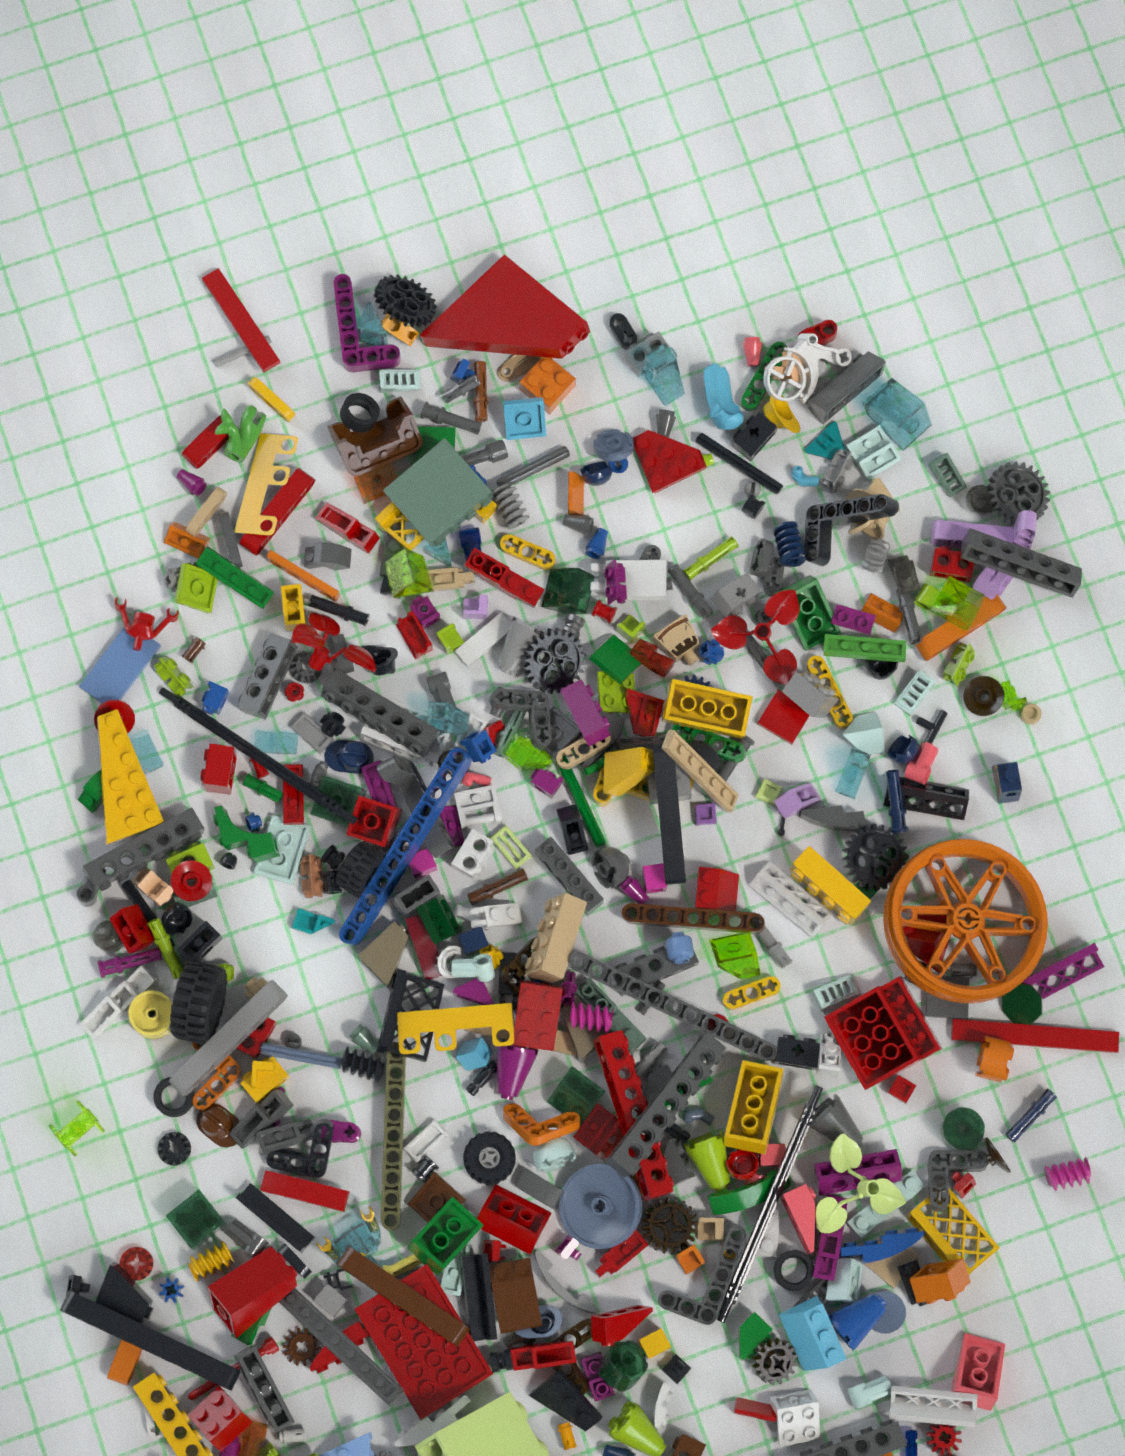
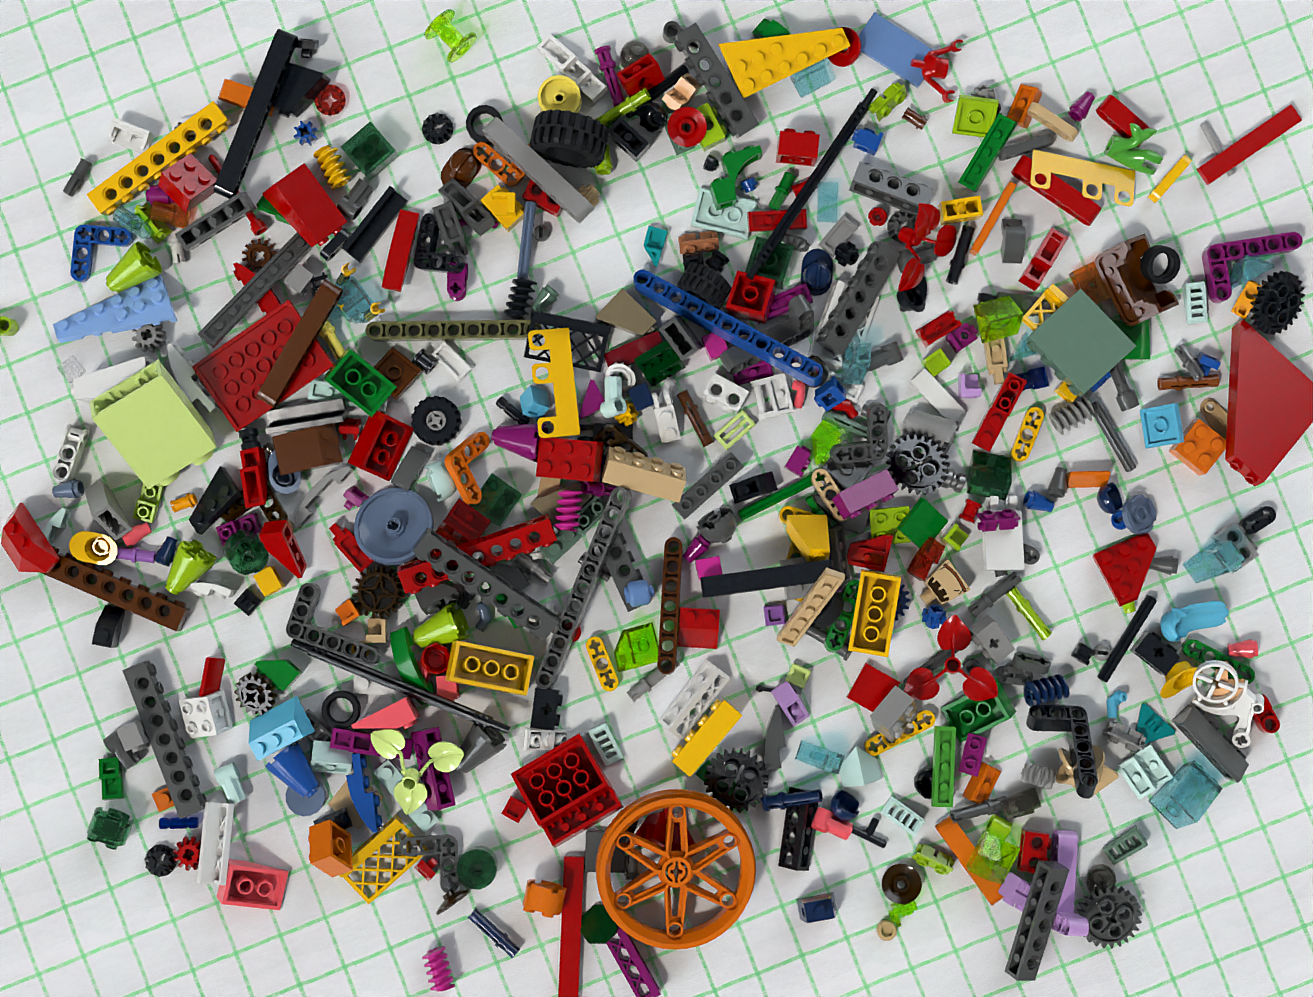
camera: 90 degrees right, 10 degrees up
(441, 416) = (1160, 345): dark grey pin -> none

